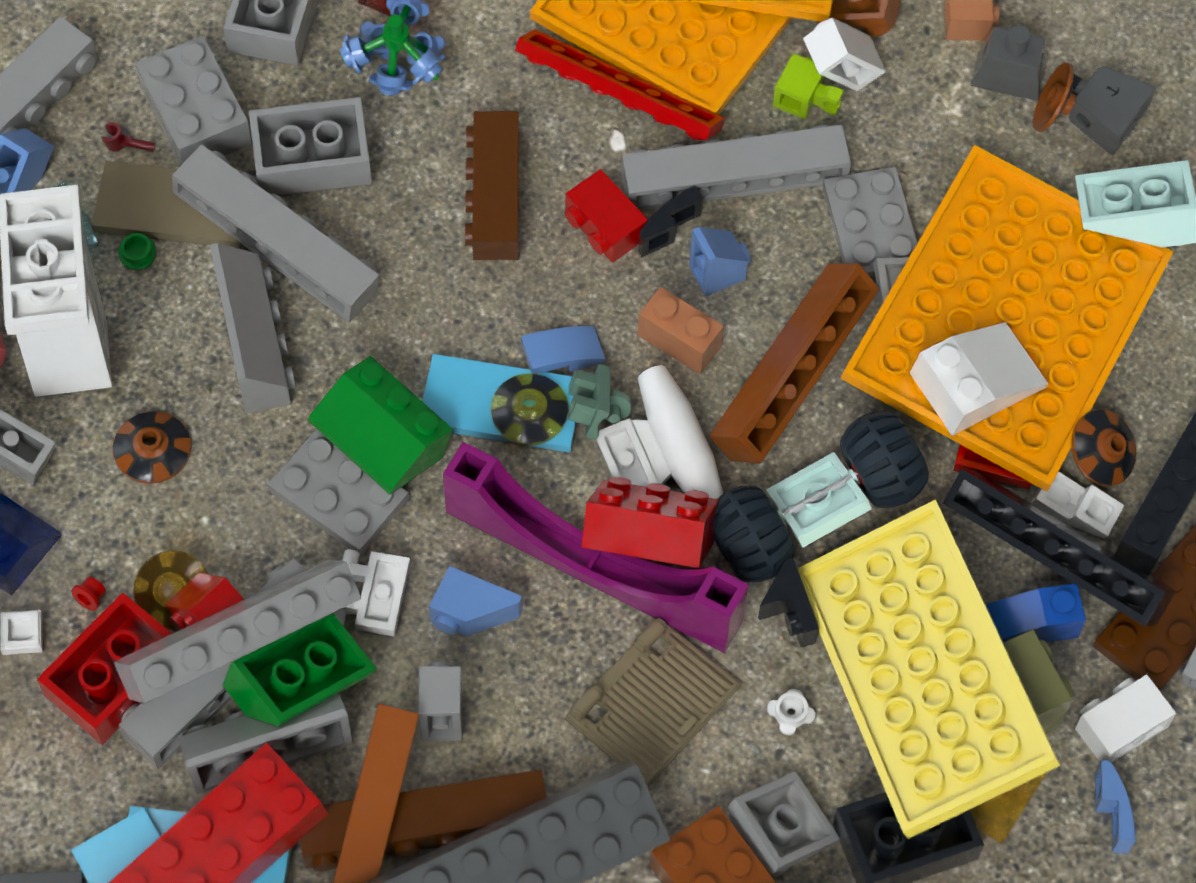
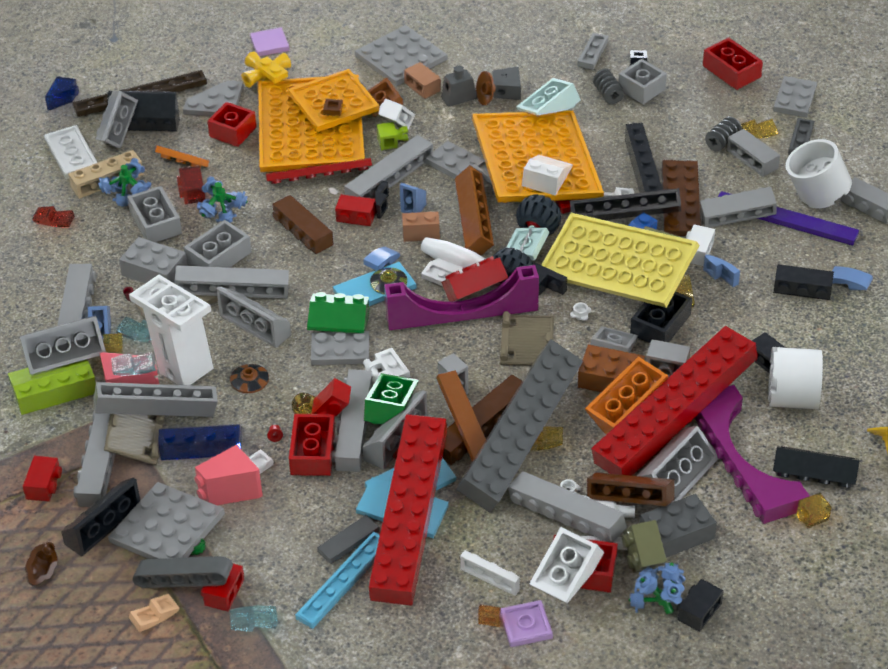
camera: 35 degrees left, 20 degrees down
(237, 630) = (356, 391): light grey brick -> none
(471, 604) = (430, 347): medium blue slope -> none
(595, 401) = (412, 261): sand green hips -> none
(1103, 447) = (609, 175): dish -> none

